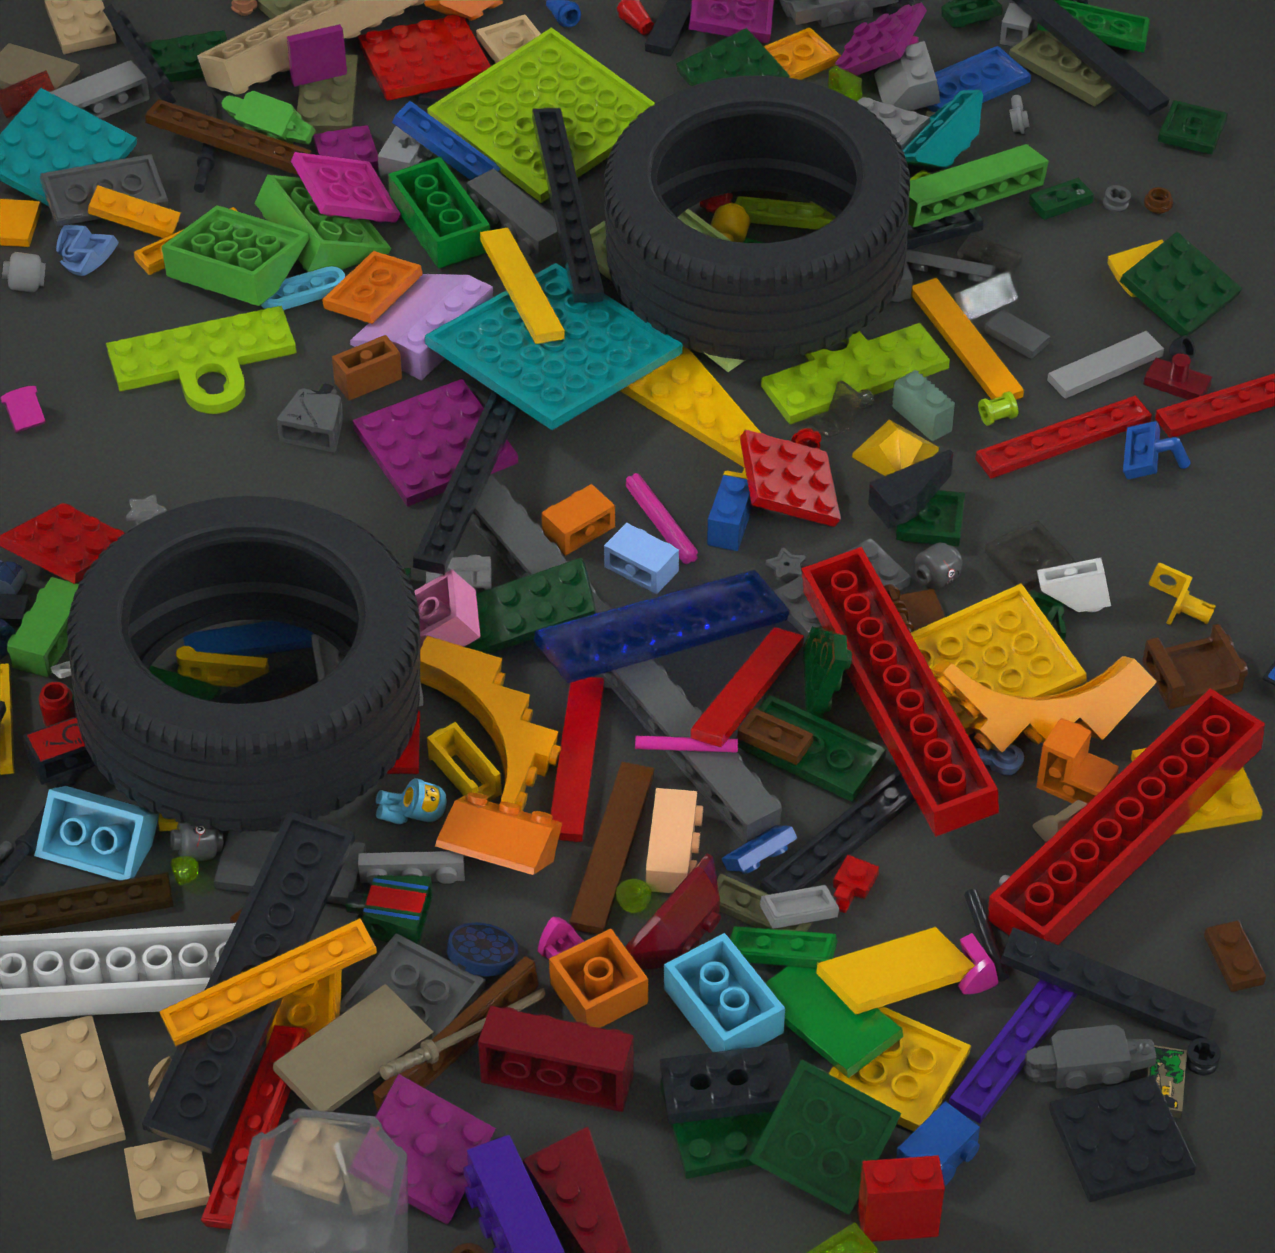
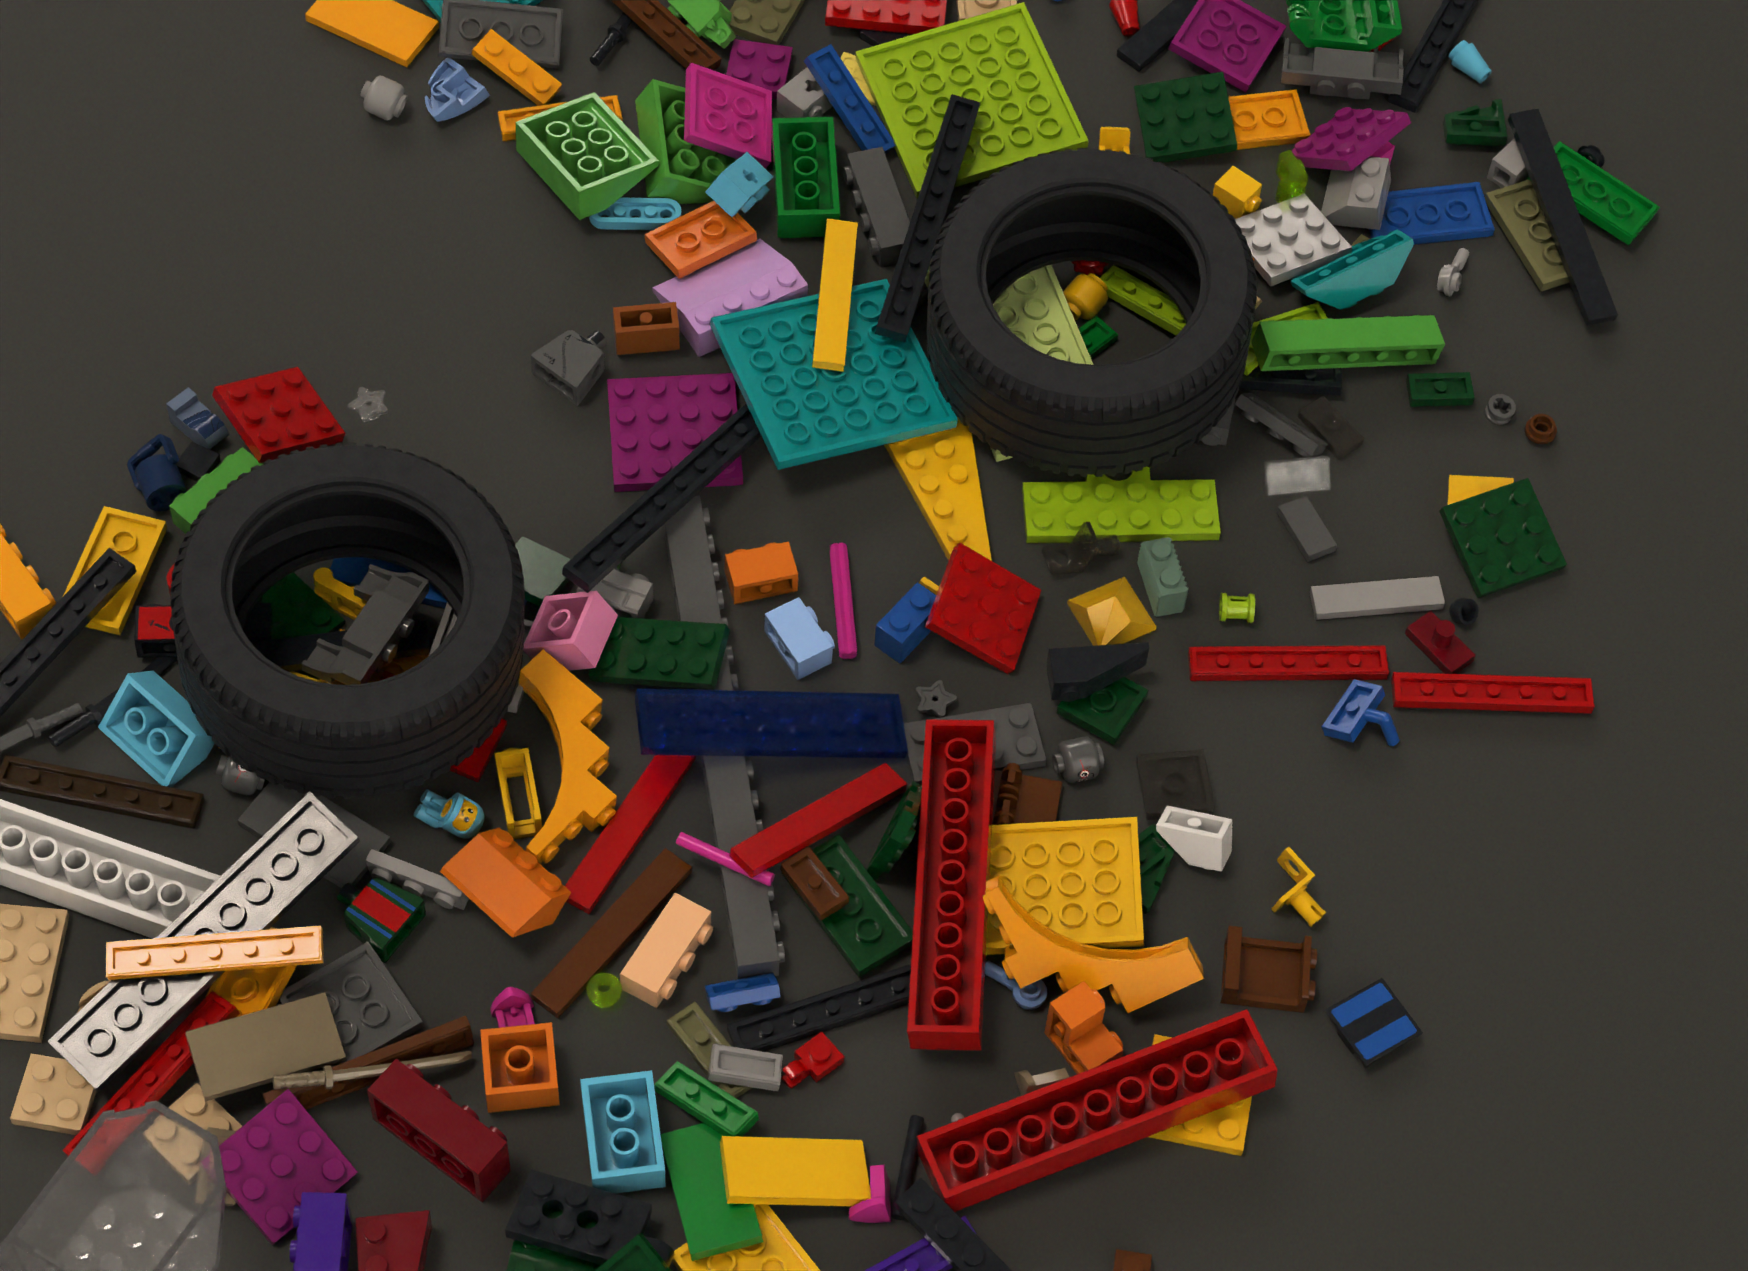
camera: 20 degrees right, 10 degrees up
(23, 408) = (310, 250): dark pink tile -> none
(184, 869) = (218, 797): clear neon green hinge -> none
(203, 348) = (510, 245): lime plate -> none
(269, 657) = (376, 630): none -> dark grey bracket
(388, 234) = (740, 185): none -> medium azure brick
(482, 949) = (436, 989): dark blue tile -> none
(680, 919) = (626, 1037): dark red wedge -> none
(807, 438) = (1028, 569): red plate -> none
(965, 339) = (1251, 517): light orange tile -> none
(1192, 127) = (1627, 355): dark green plate -> none

